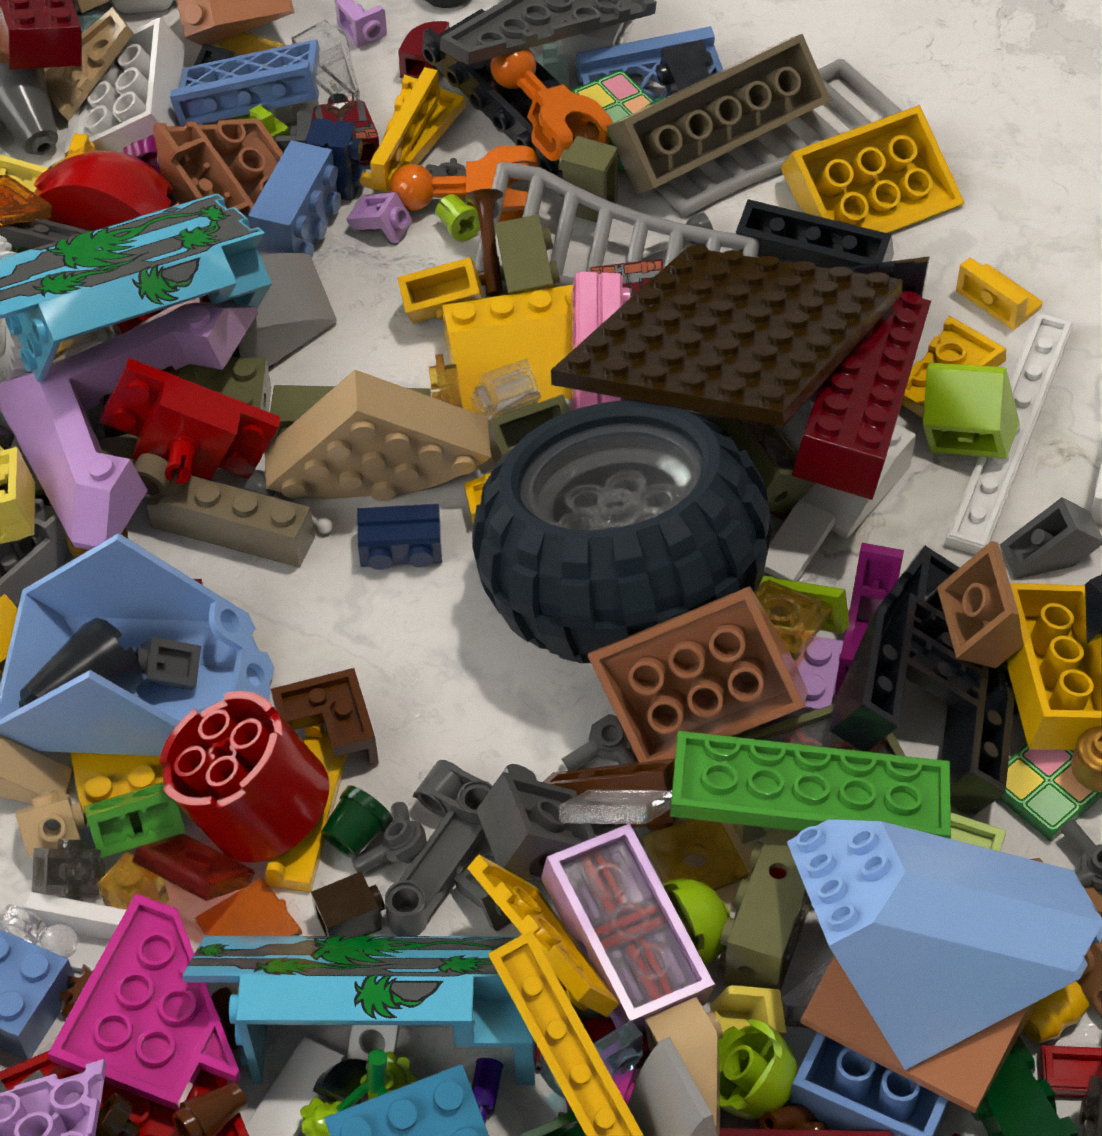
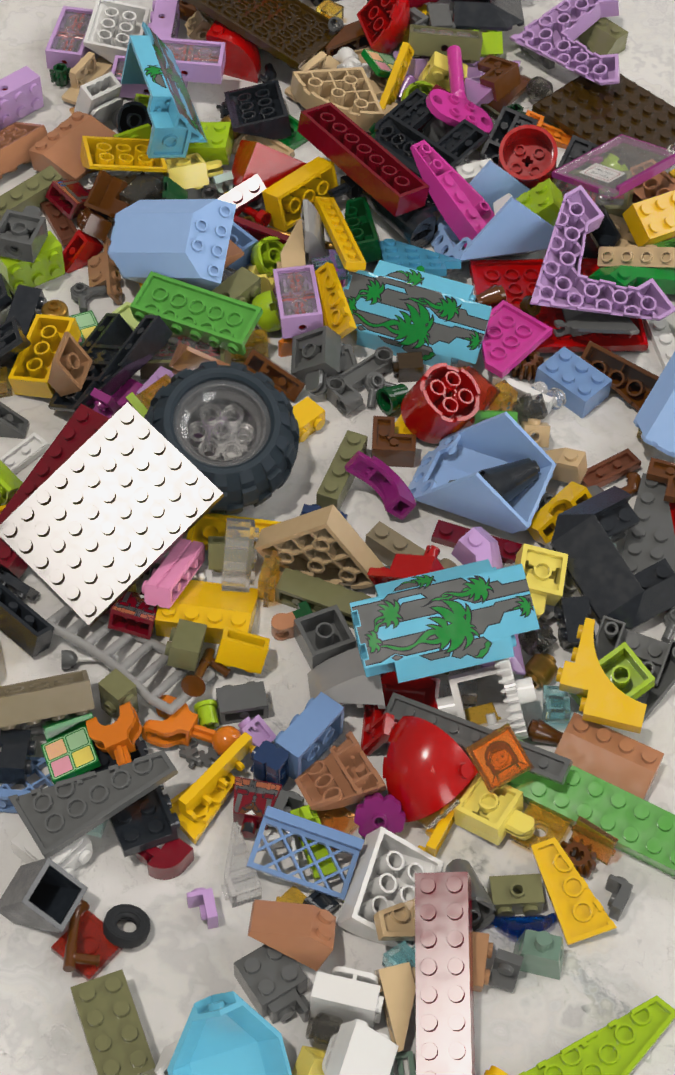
camera: 165 degrees left, 0 degrees up
(288, 620) = (389, 486): none -> magenta arch
(323, 345) = (323, 635): none -> dark grey brick
(392, 362) = (283, 624): none -> nougat leg
(399, 636) = (337, 479): none -> olive brick
(414, 242) = (241, 701): none -> dark grey brick
(516, 716) = (309, 417): none -> yellow brick
(615, 806) = (279, 340): clear tile -> none

